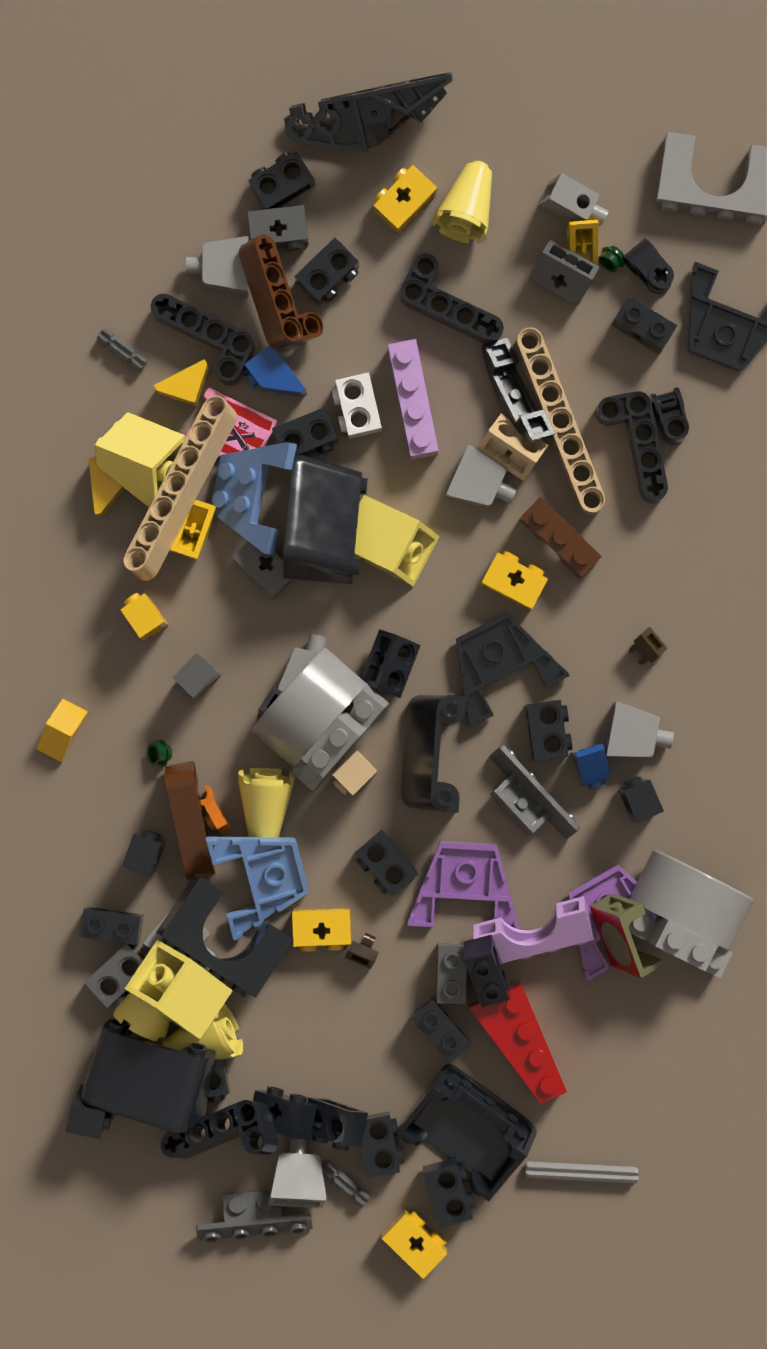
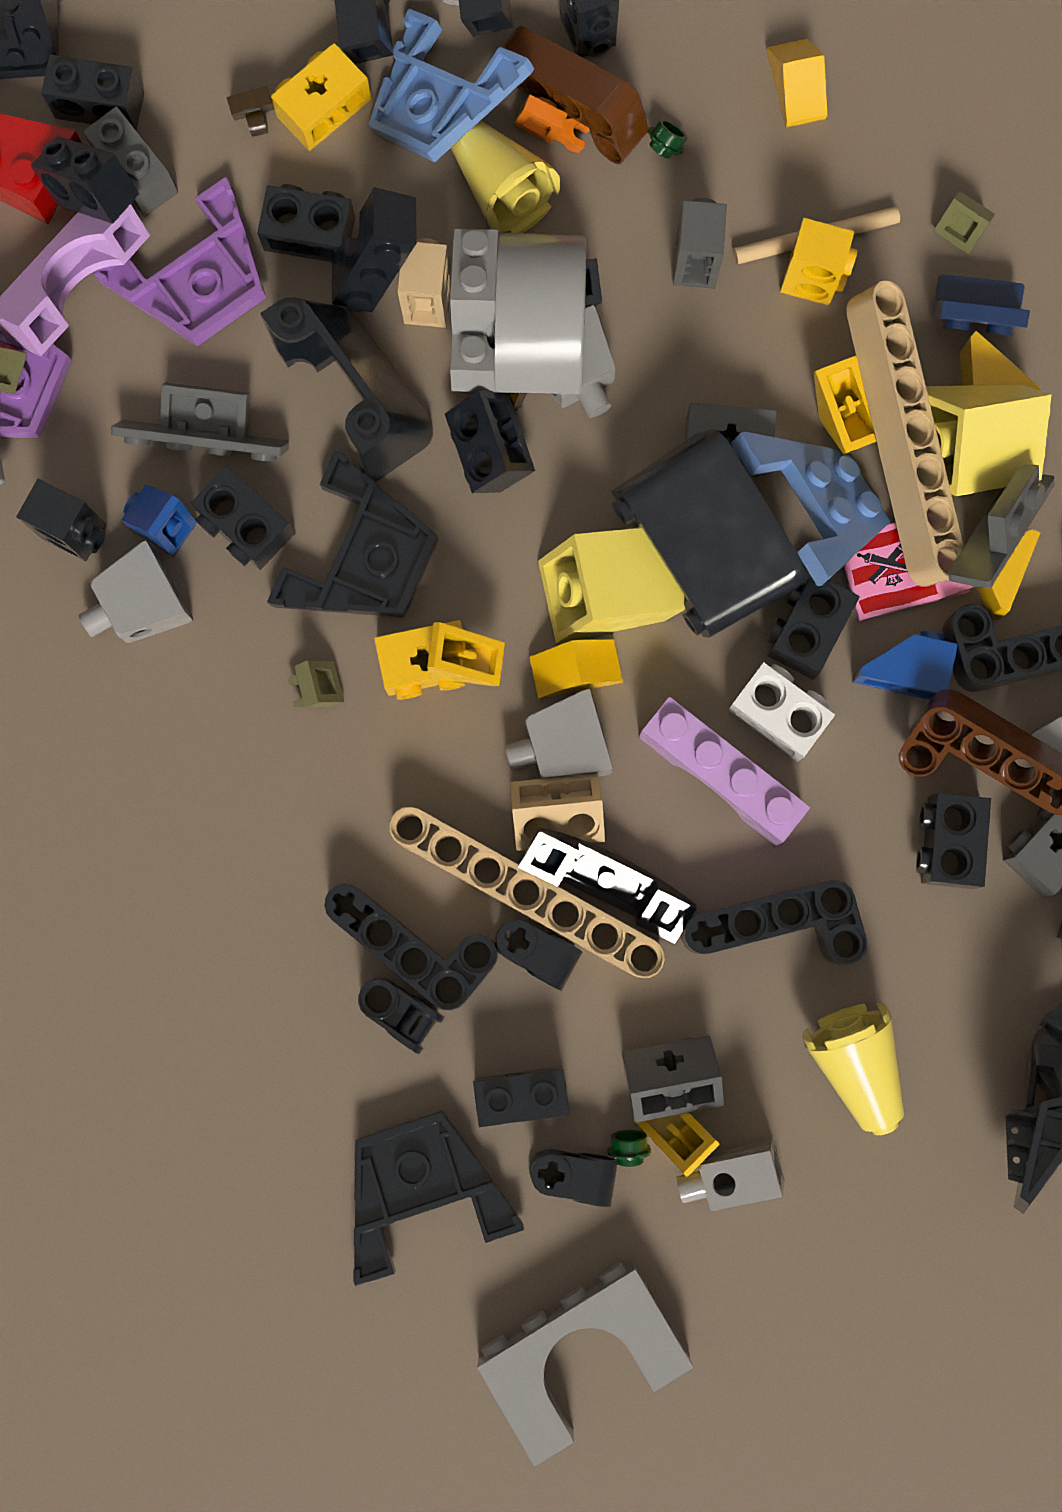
camera: 145 degrees right, 5 degrees down
(45, 578) = (964, 222): none -> olive tile
(77, 527) = (980, 301): none -> dark blue bracket
(124, 638) = (786, 242): none -> tan bar
(175, 400) = (1002, 528): none -> dark grey bracket
(371, 802) = (369, 264): none -> black arch
(419, 191) = (938, 1032): yellow brick -> none
(441, 514) = (575, 667): none -> yellow slope
(496, 557) = (464, 656): none -> yellow slope
(560, 537) = (410, 750): reddish brown arch -> none
(577, 384) = (545, 955): none -> black piece
(578, 612) = (317, 684): none -> olive tile
(649, 645) = (201, 714): dark brown tile -> none

